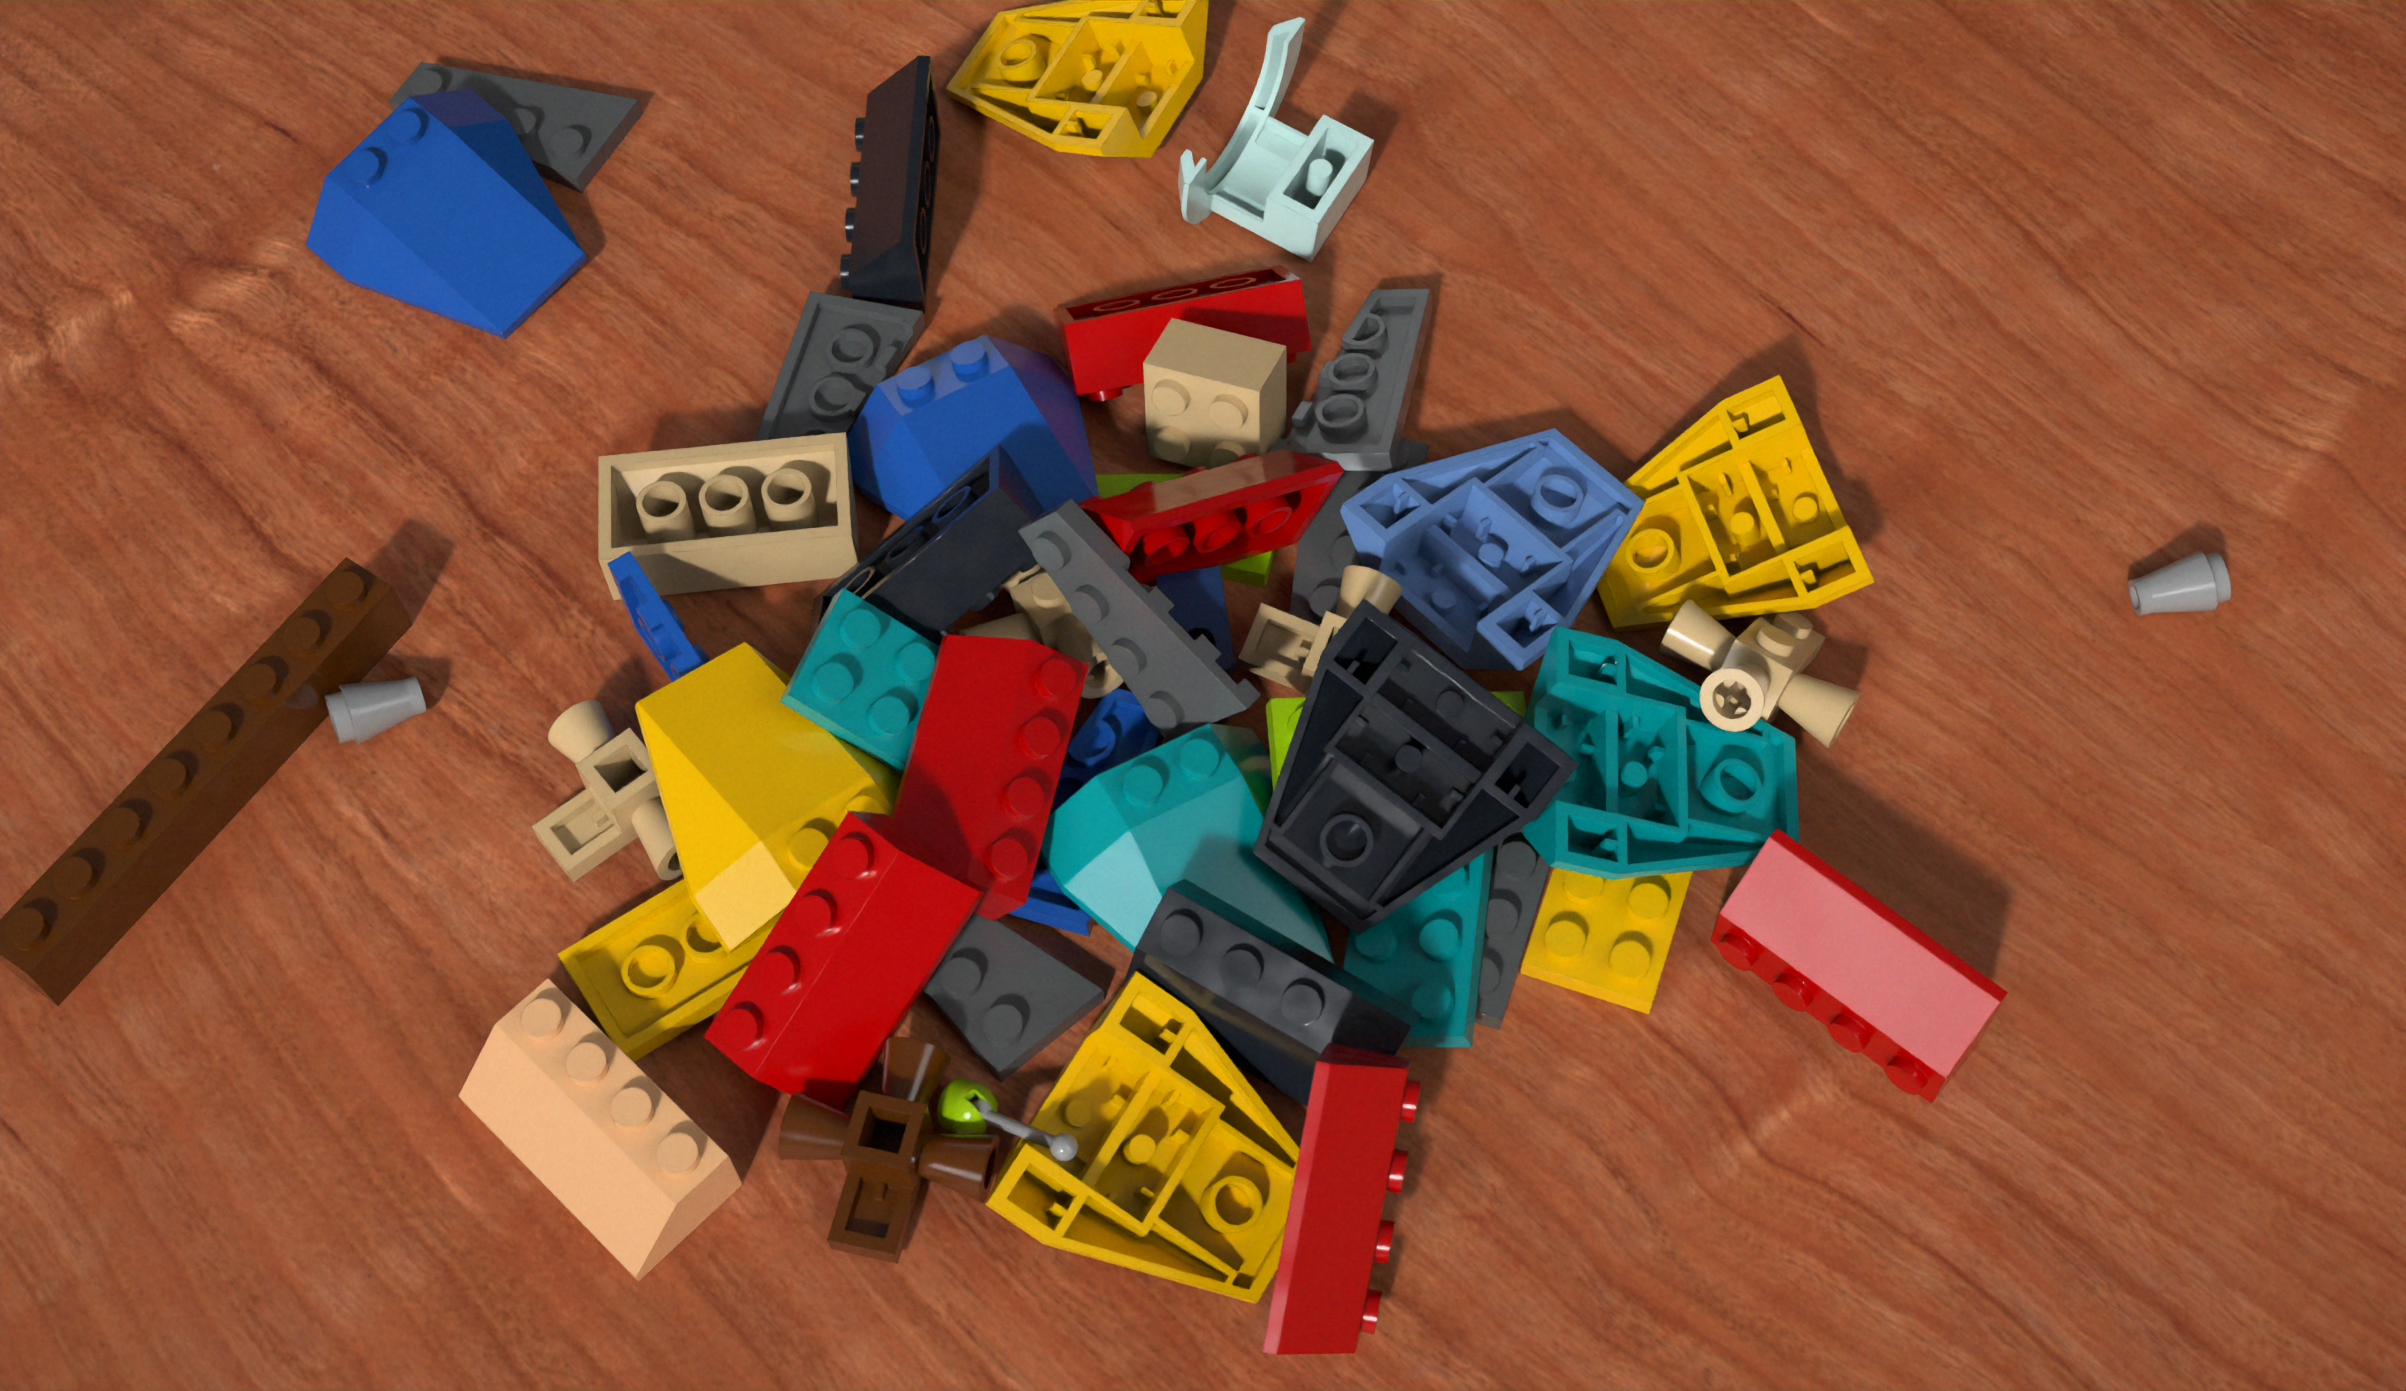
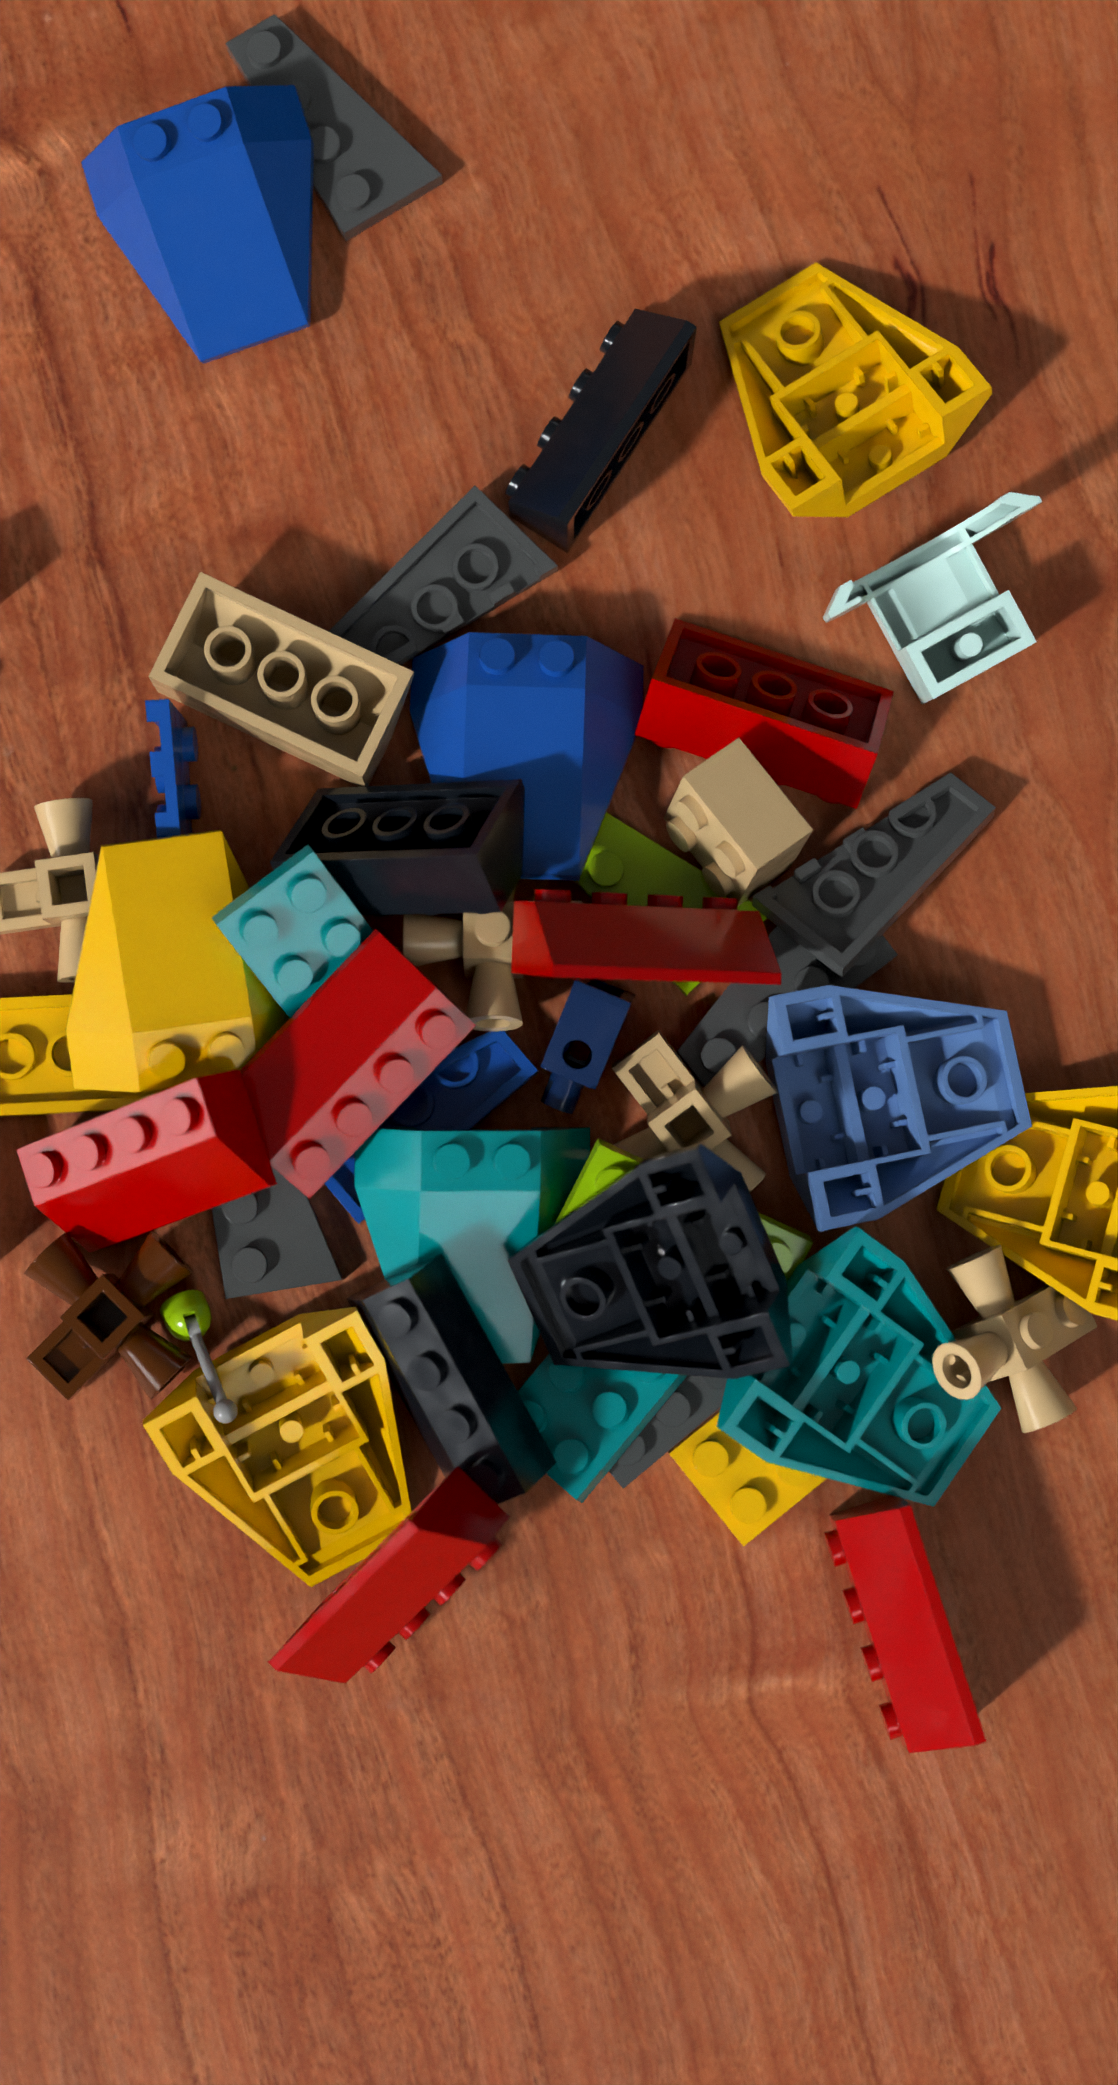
camera: 30 degrees right, 25 degrees up
(1131, 624) = (523, 1021): dark grey wing -> none

